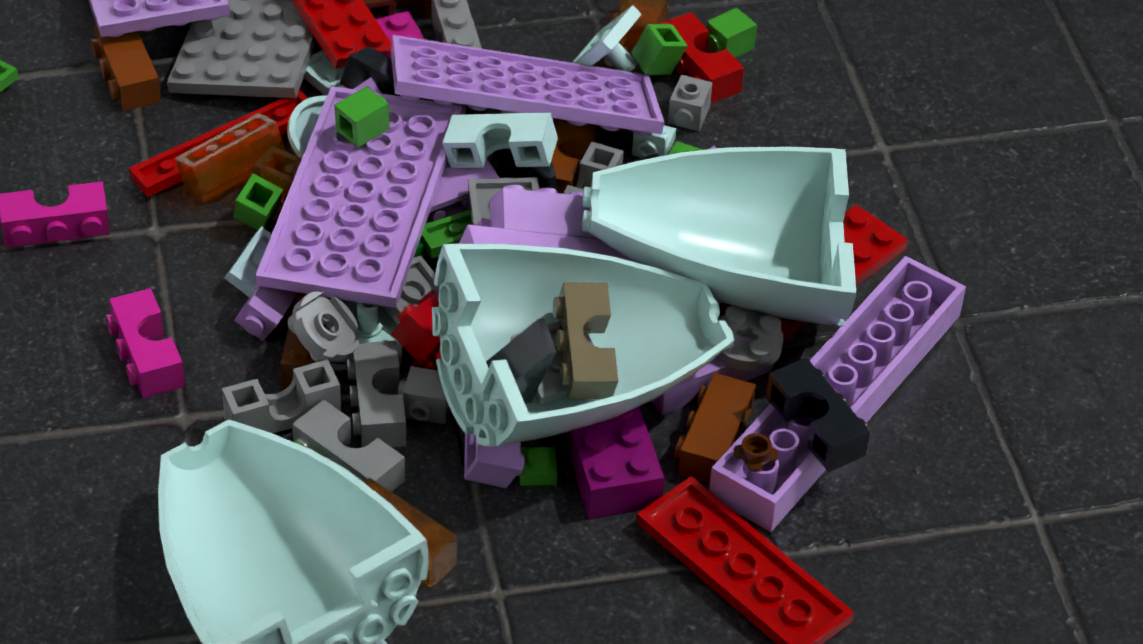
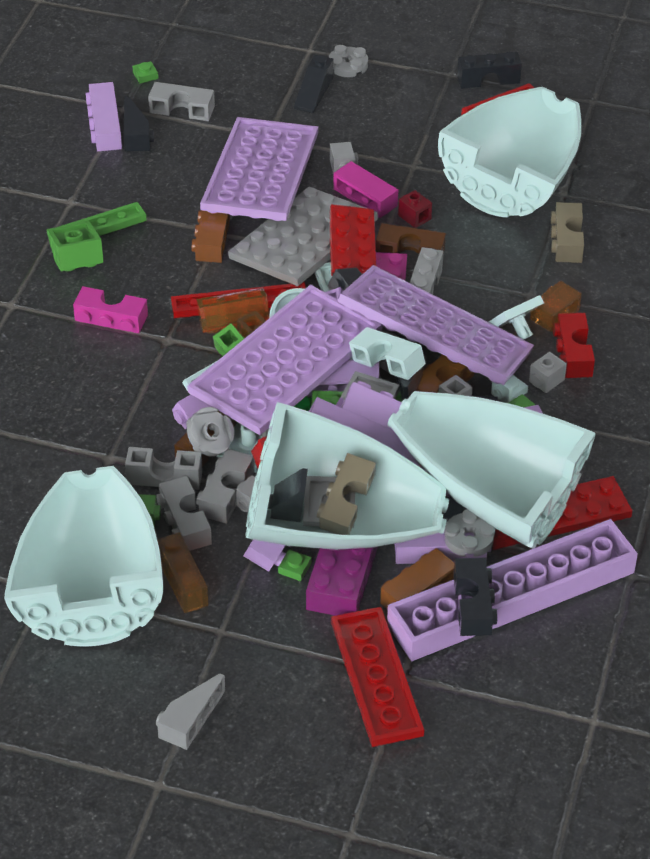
camera: 30 degrees right, 0 degrees up
(151, 364) = (109, 416): dark pink arch -> none
(362, 116) = (311, 309): bright green brick -> none
(659, 49) = (546, 330): bright green brick -> none
(731, 32) = (606, 337): bright green brick -> none
(755, 451) = (418, 599): reddish brown plate -> none

